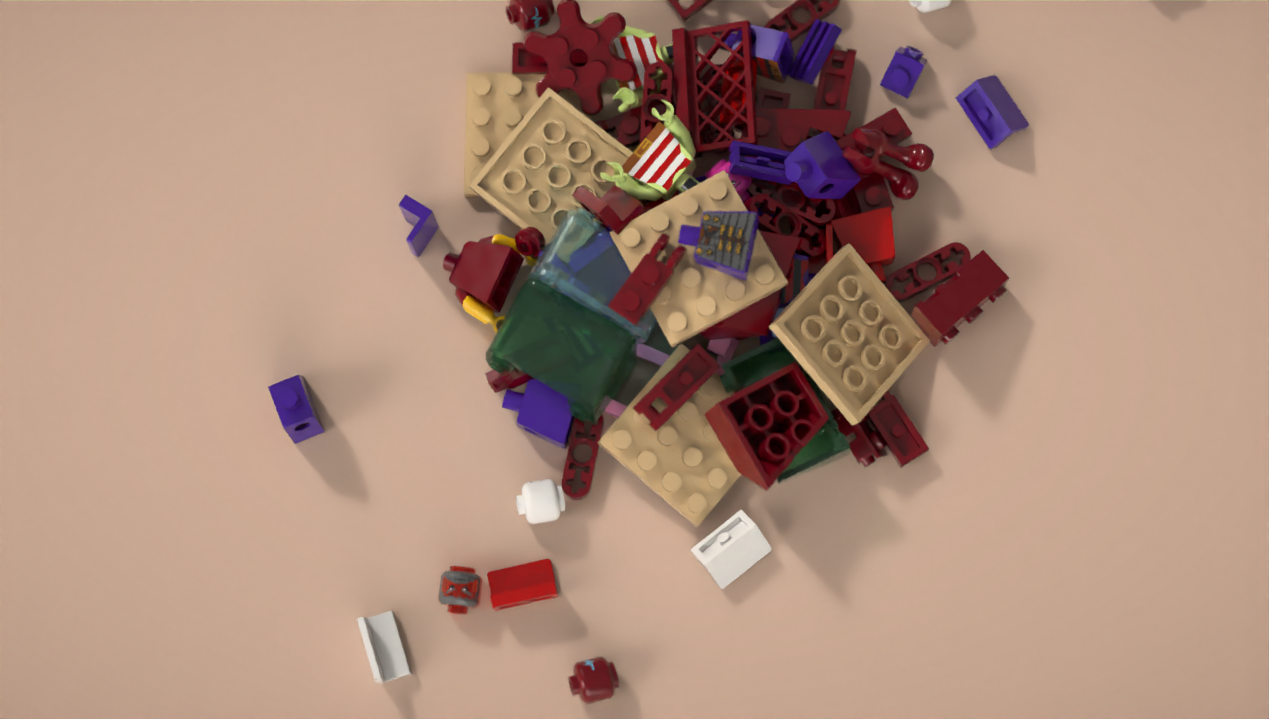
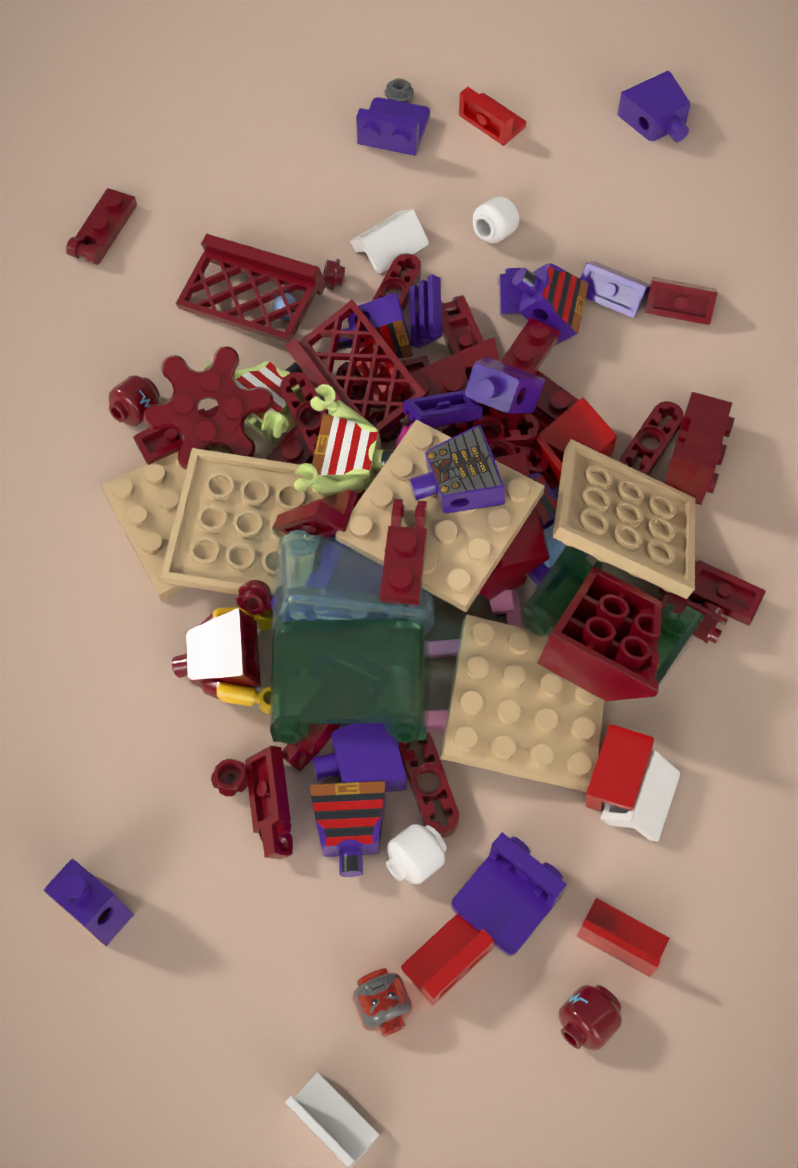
camera: 35 degrees left, 15 degrees down
(423, 221) = (125, 636): dark purple panel -> none
(438, 362) = (223, 770): none -> dark red plate
(460, 404) = (270, 802): none -> dark red hinge
(507, 451) = (349, 821): none -> torso
(588, 567) = (509, 894): none -> dark purple bracket
(653, 640) = (623, 937): none -> red panel
(677, 386) = (491, 653): dark red plate -> none
(722, 522) = (619, 769): none -> red panel
(901, 181) = (538, 360): dark red piece -> none
(924, 100) = (552, 298): none -> torso
(1042, 153) = (681, 301): none -> dark red panel

